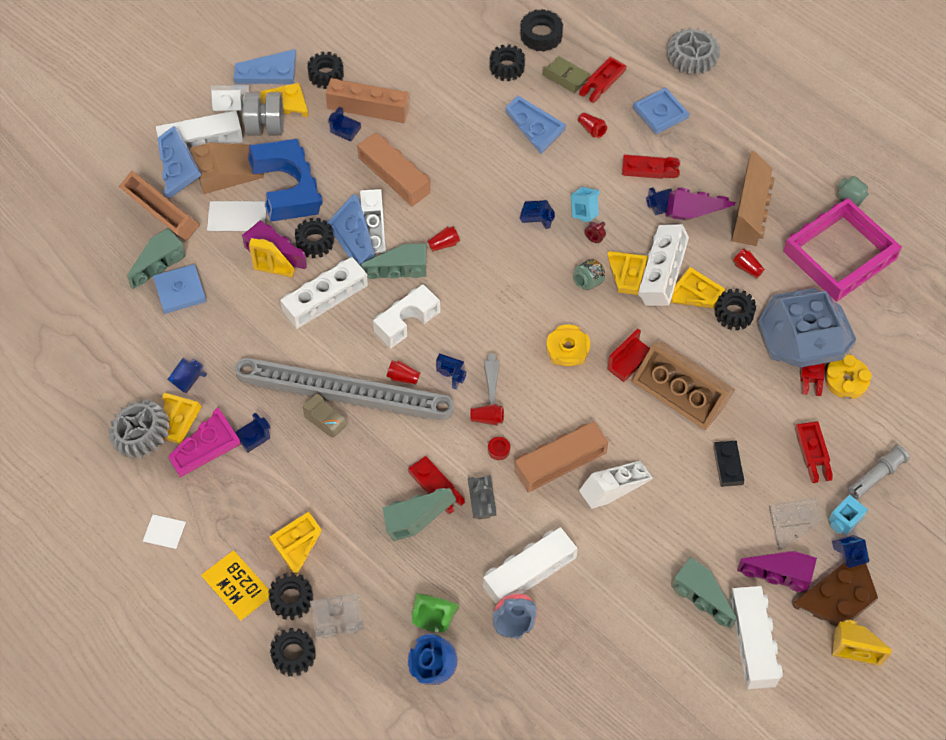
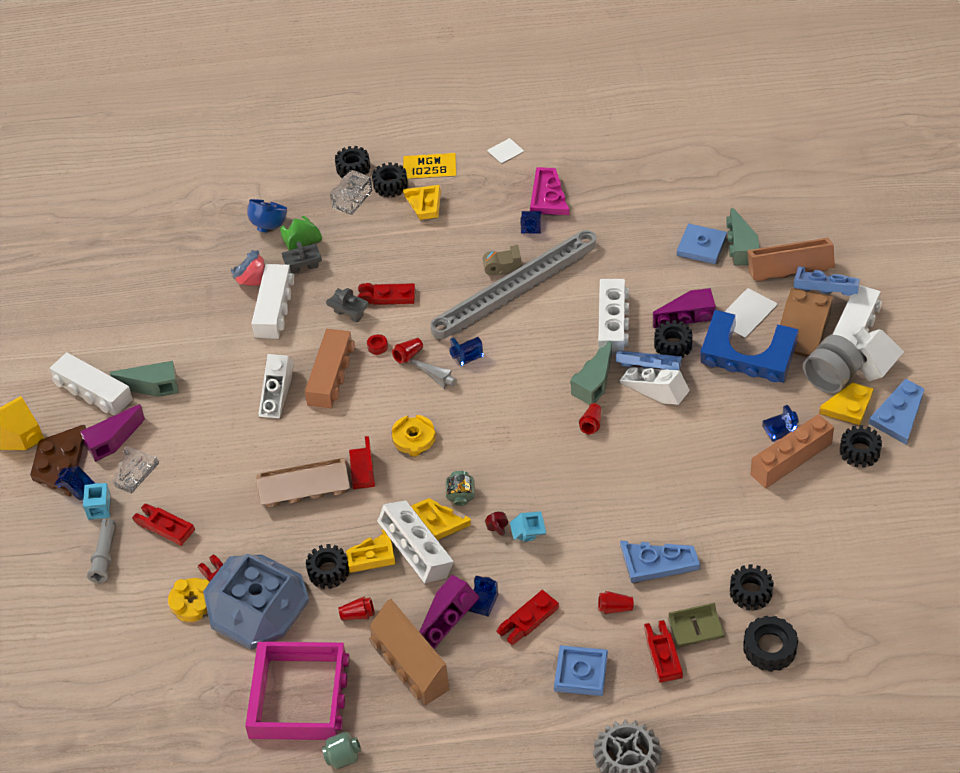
camera: 135 degrees right, 10 degrees down
(139, 429) = (590, 161): light grey gear -> none
(181, 416) = (584, 189): yellow wing -> none
(186, 374) = (616, 211): clear blue bracket -> none
(269, 259) = (673, 287): yellow wing -> none
(394, 169) = (697, 426): nougat brick -> none
(402, 373) = (494, 322): red cone -> none
(413, 515) = (376, 258): sand green slope -> none
(418, 304) = (541, 364): white arch -> none
(460, 583) = (302, 256): none -> dark grey hips
(537, 212) = (555, 494): clear blue bracket -> none
(728, 463) = (216, 467): black plate -> none

